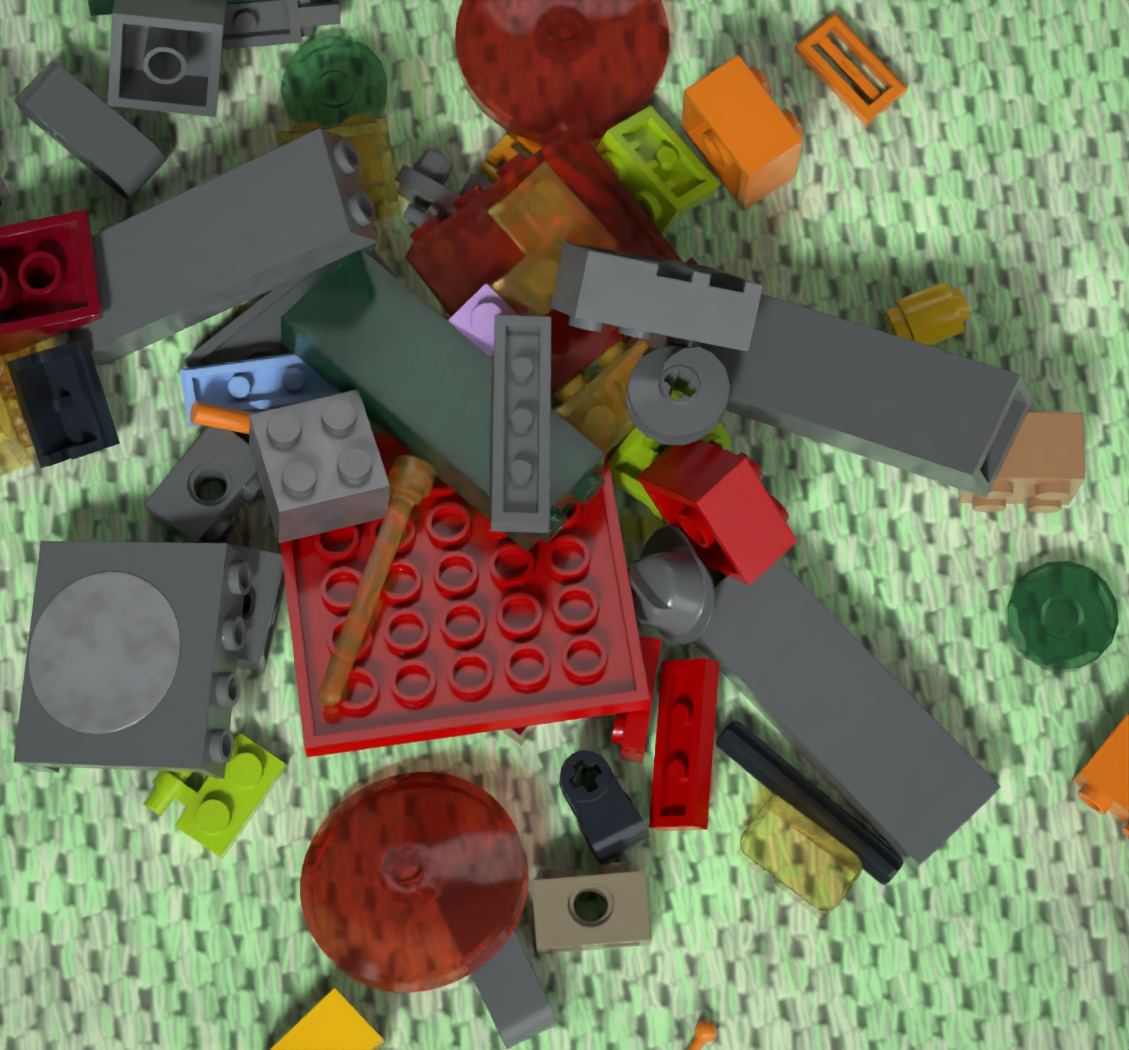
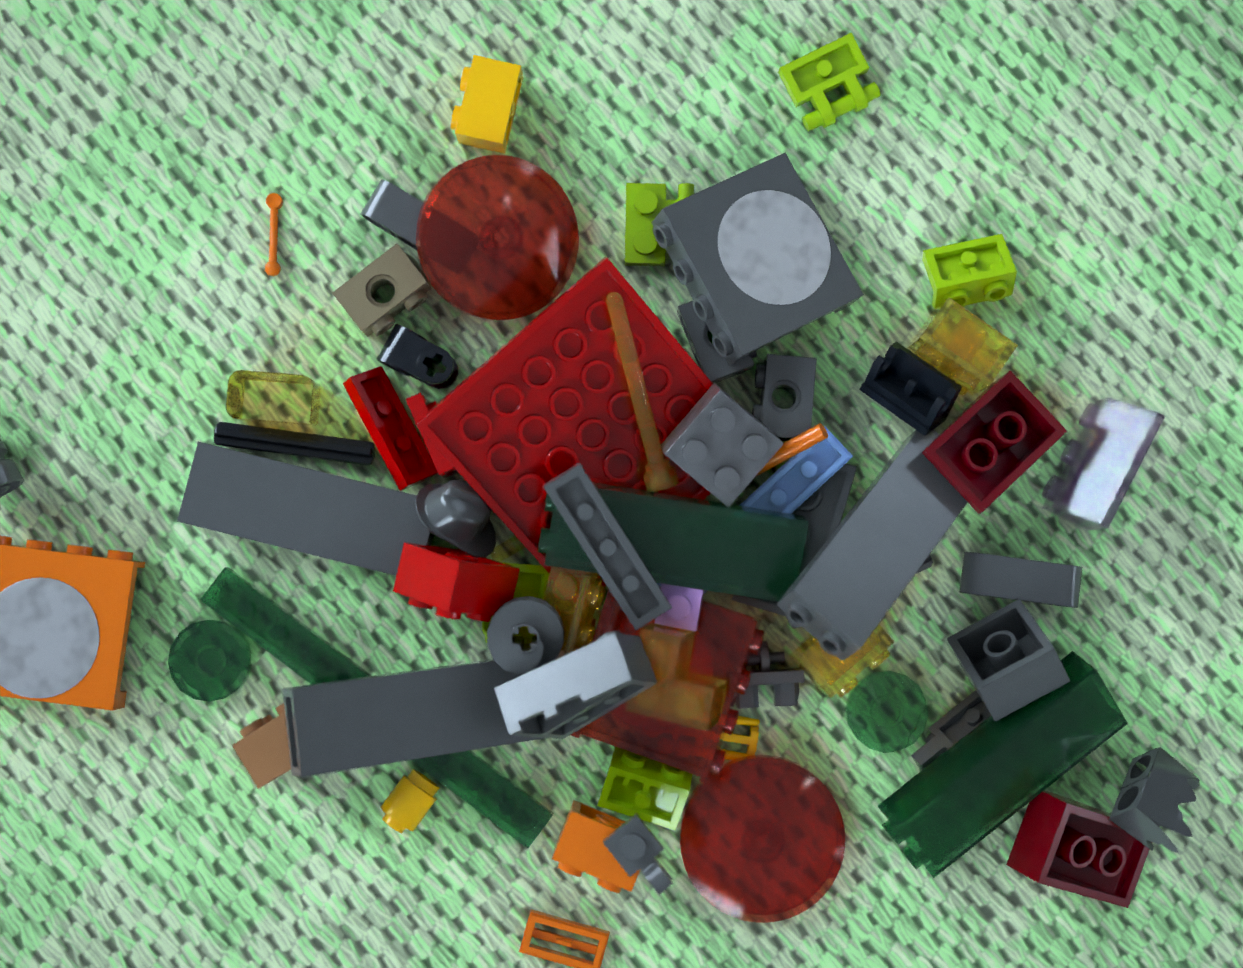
camera: 145 degrees right, 10 degrees up
(703, 91) = (636, 849): none -> dark grey plate
(922, 504) = (321, 662): none -> clear green plate

